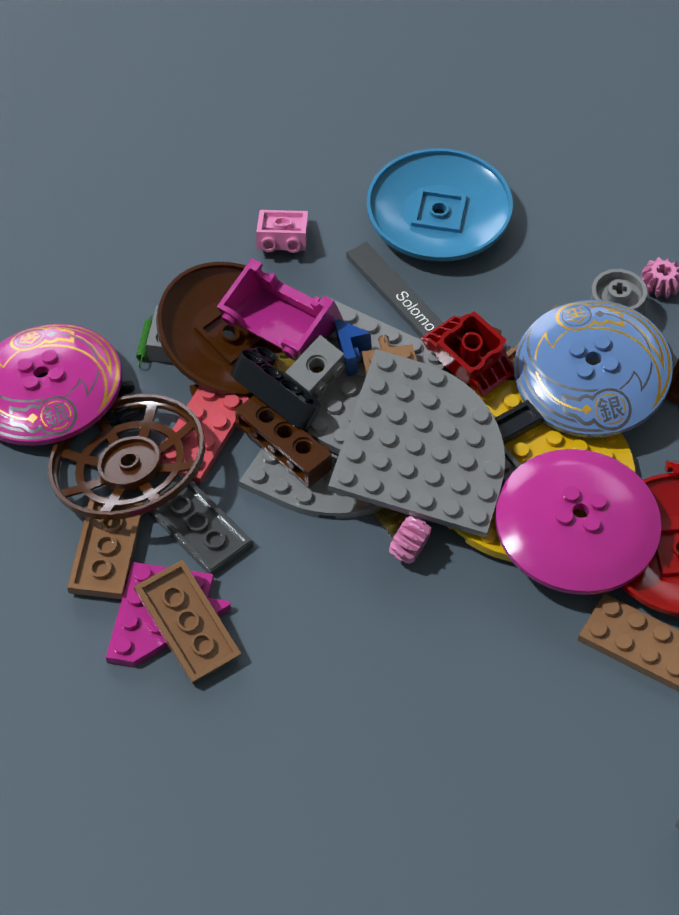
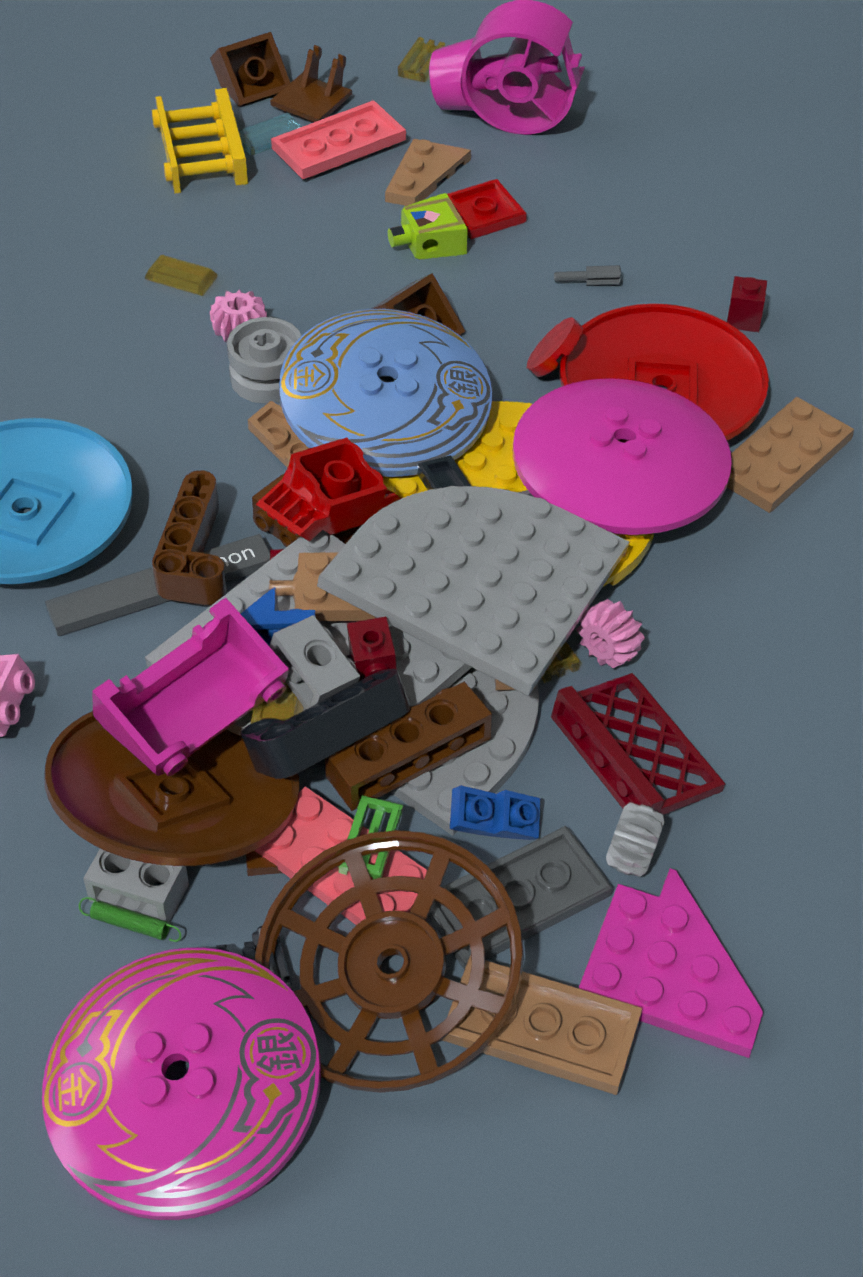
camera: 80 degrees left, 5 degrees down
(187, 621) = (712, 918): medium nougat plate -> none
(216, 440) = (381, 806): none -> bright green tile
(240, 573) = (635, 839): none -> light grey gear
(252, 500) = (495, 815): none -> blue slope
(306, 559) = (610, 756): none -> dark red fence
(338, 398) = (371, 646): none -> dark red brick
(429, 293) = (179, 562): none -> reddish brown beam

